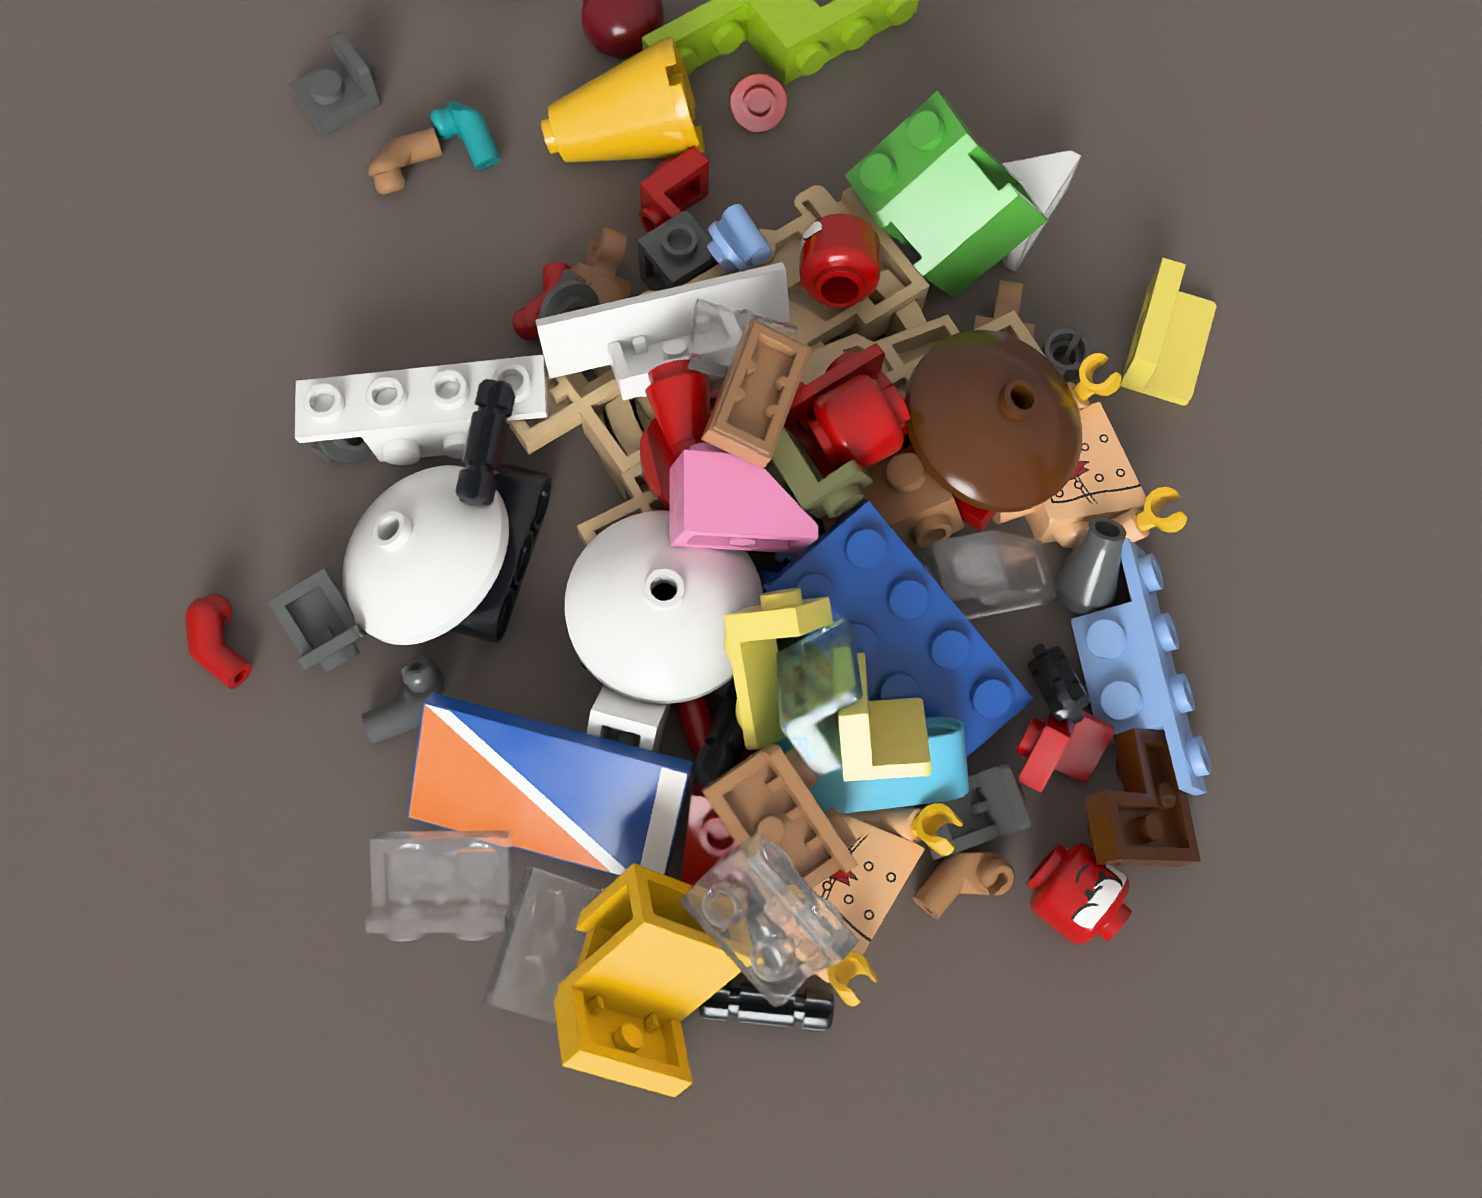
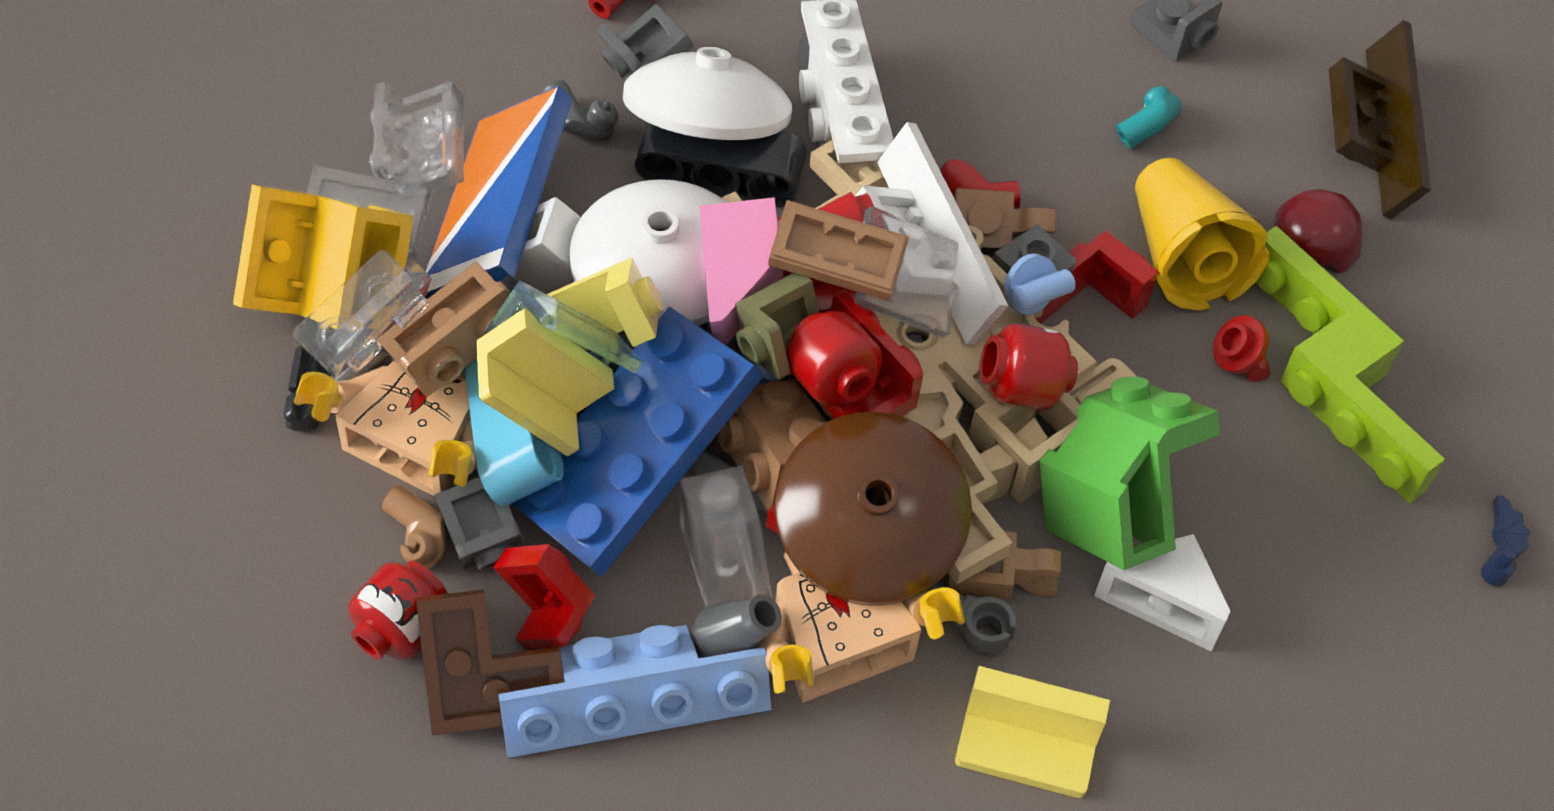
camera: 85 degrees right, 15 degrees down
(401, 152) = (1116, 70): medium nougat arm -> none
(485, 443) = (795, 104): black axle -> none
(568, 295) = (964, 176): dark grey plate -> none
(1058, 683) = (606, 587): black axle -> none

